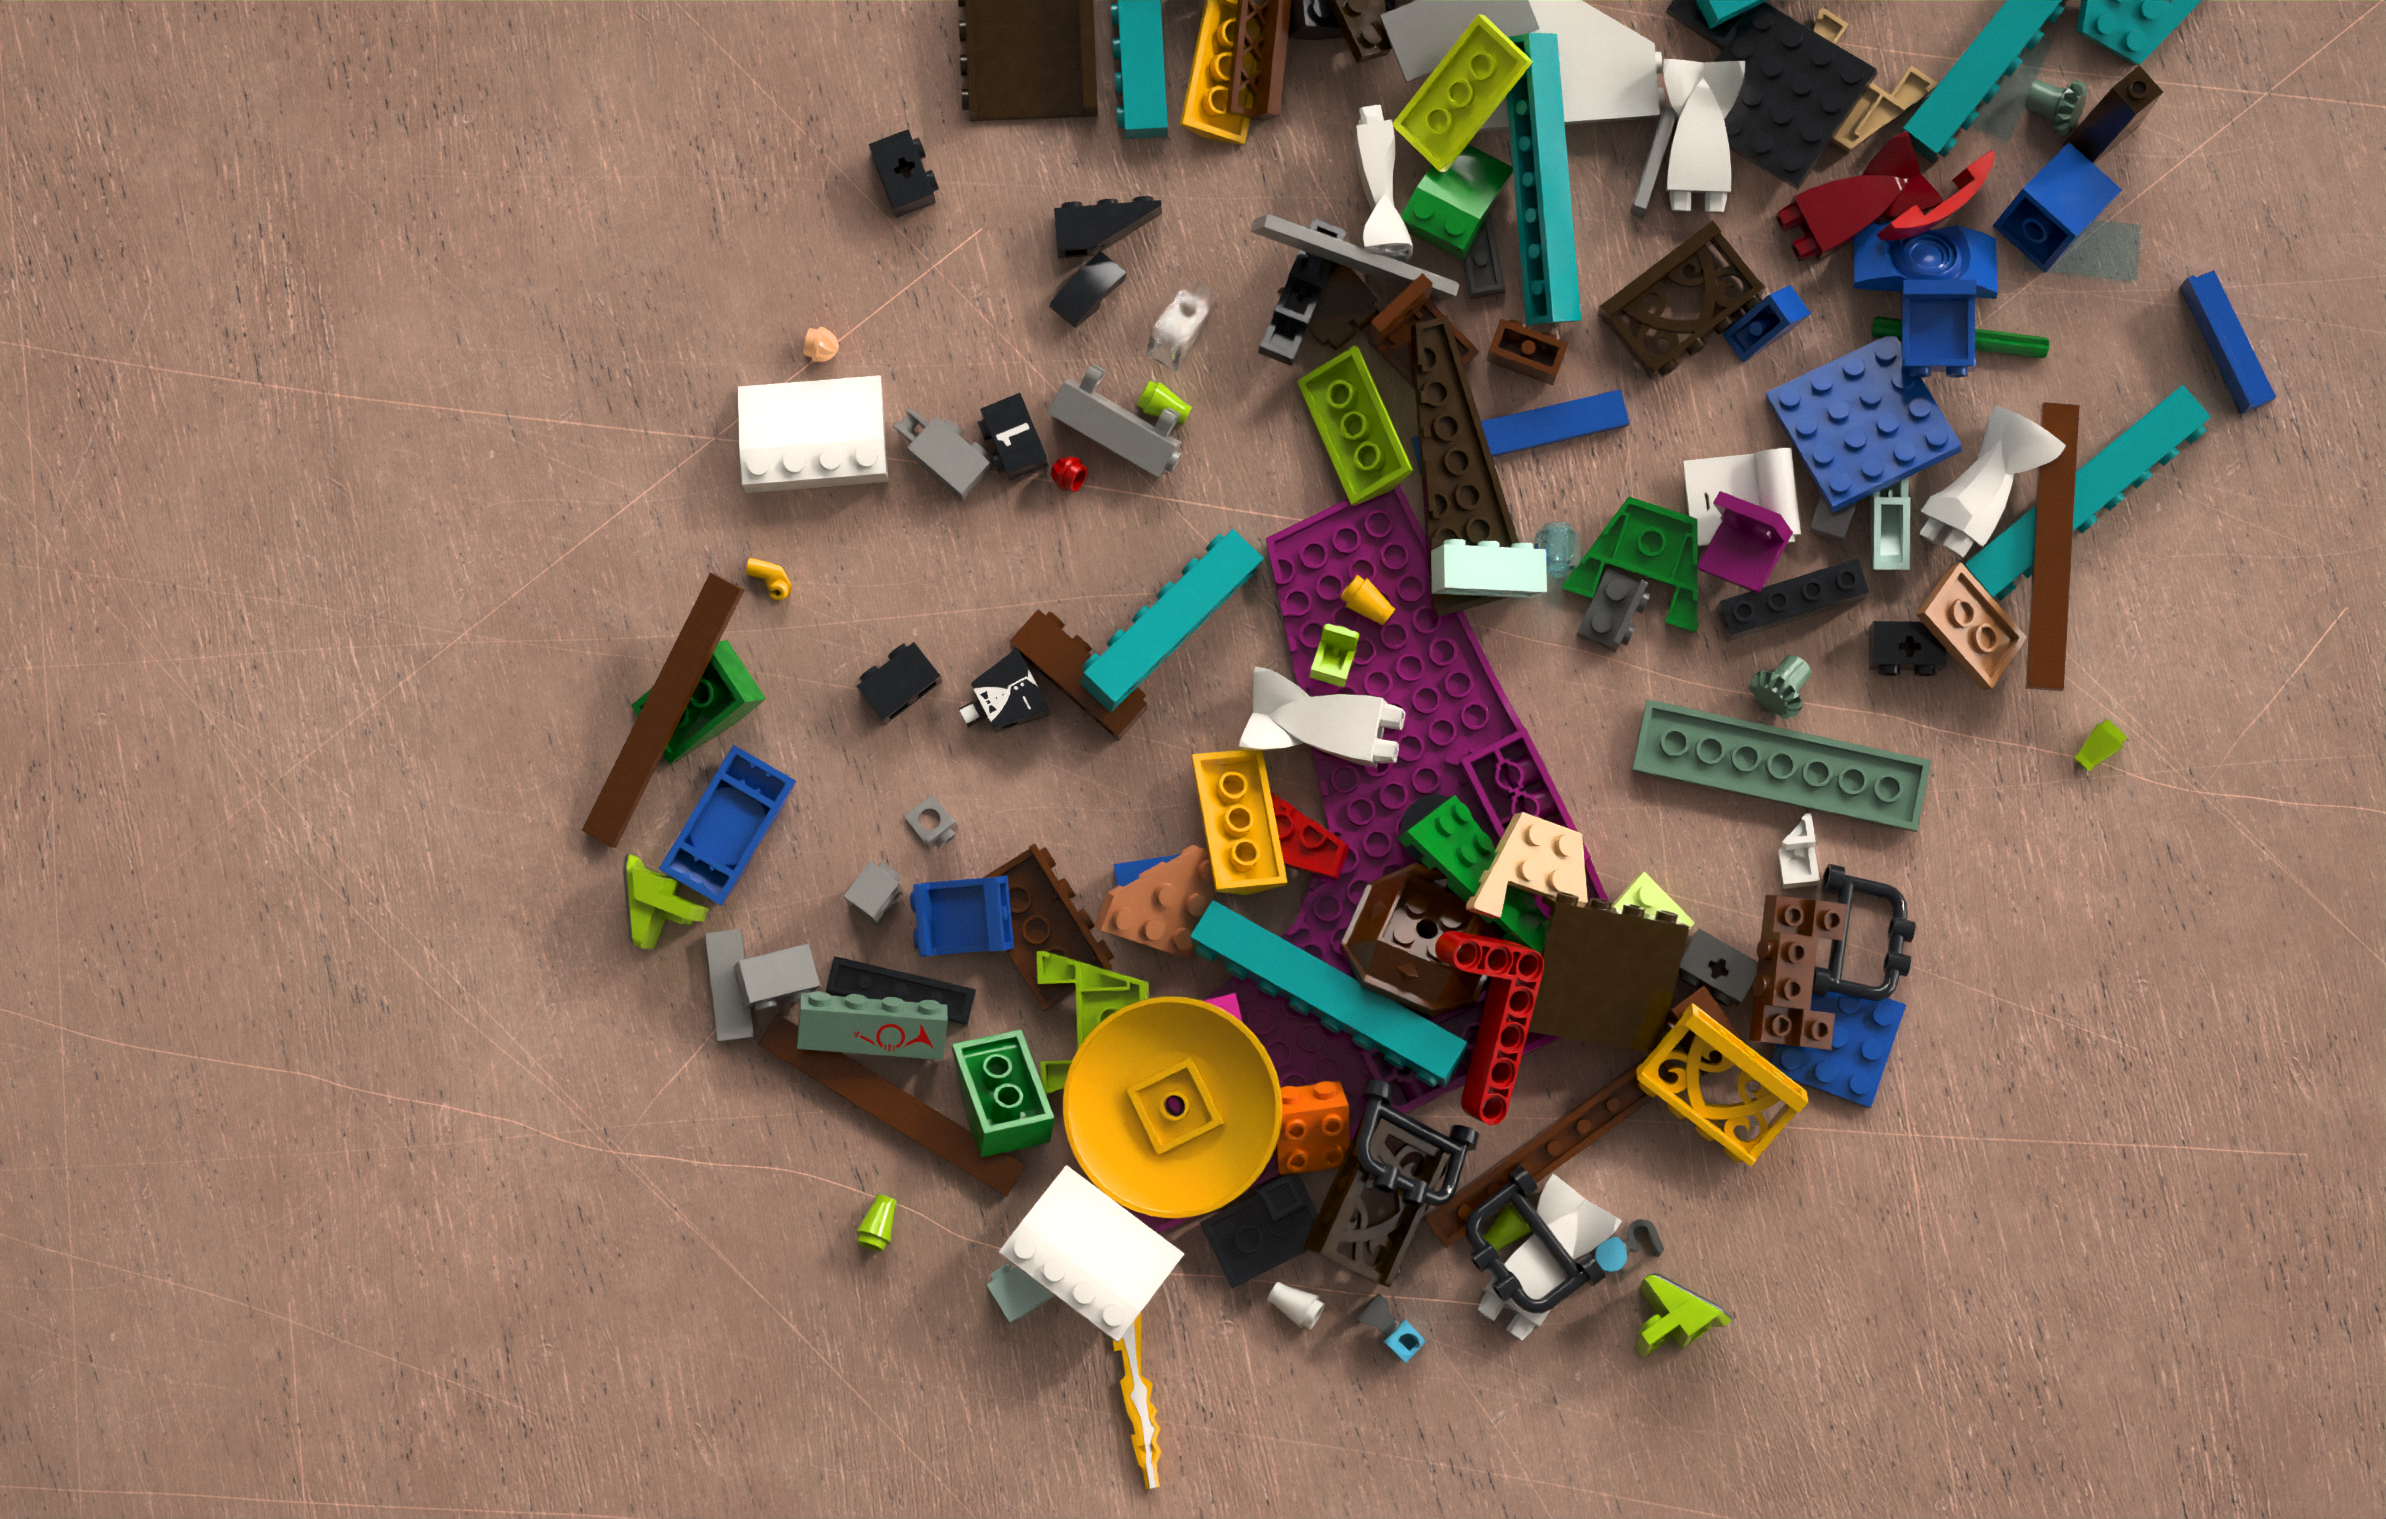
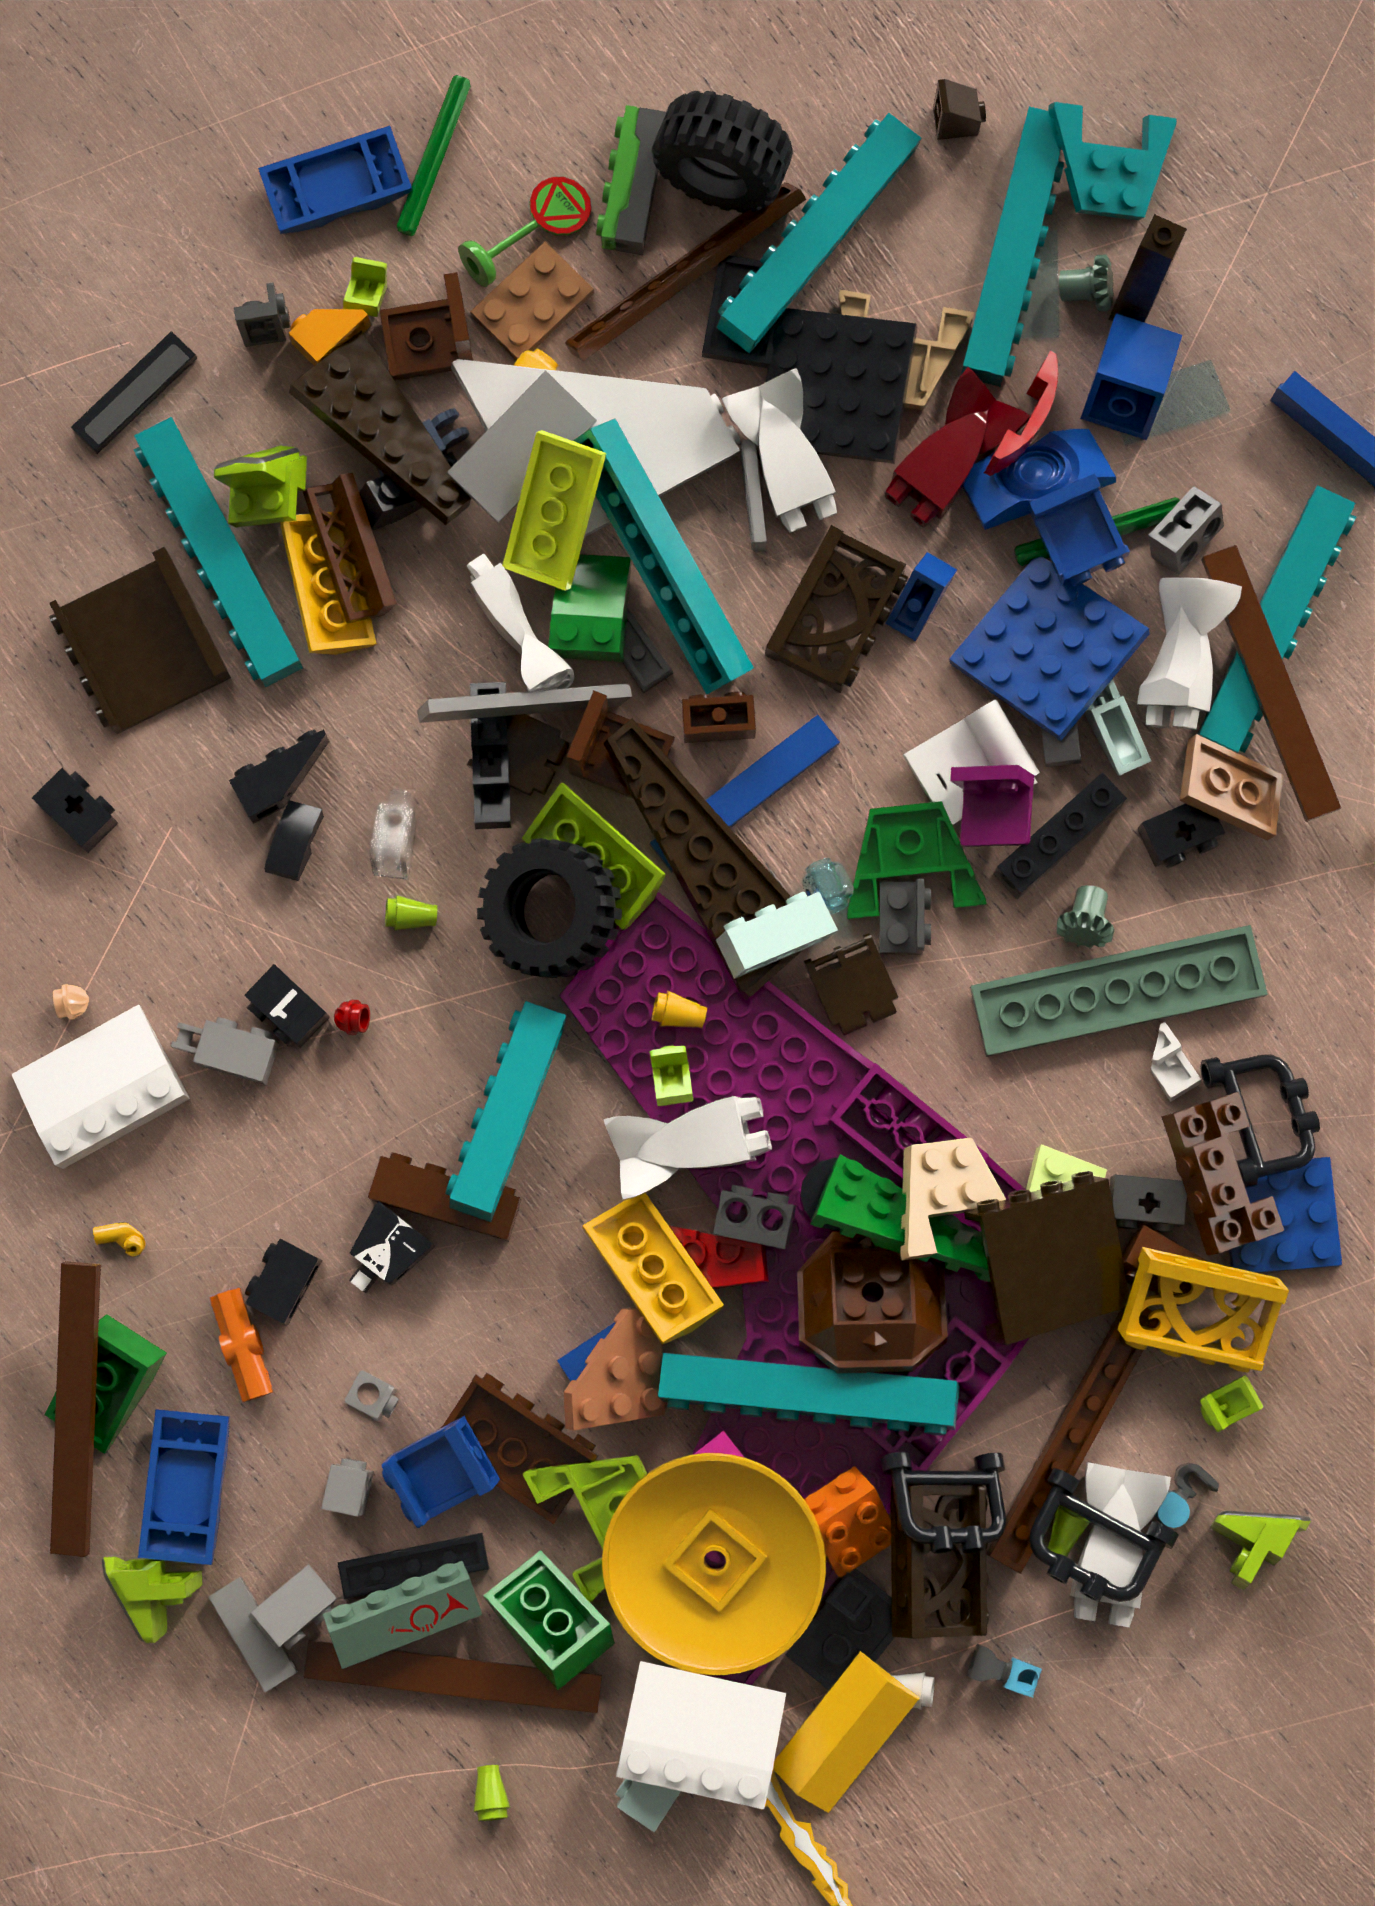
camera: 25 degrees left, 0 degrees up
(835, 722) = (241, 1344): none -> orange piece
(1116, 427) = (376, 955): light grey brick -> none
(1220, 1315) = (843, 1732): none -> yellow slope
(1259, 426) = (506, 898): none -> black tyre
(1346, 824) = (753, 1227): none -> dark grey brick
(1498, 1015) = (982, 1343): red beam -> none
(1539, 651) = (853, 986): none -> dark brown plate
(1708, 1184) = (1230, 1403): none -> lime bracket
(2041, 372) = (1186, 530): none -> dark grey brick

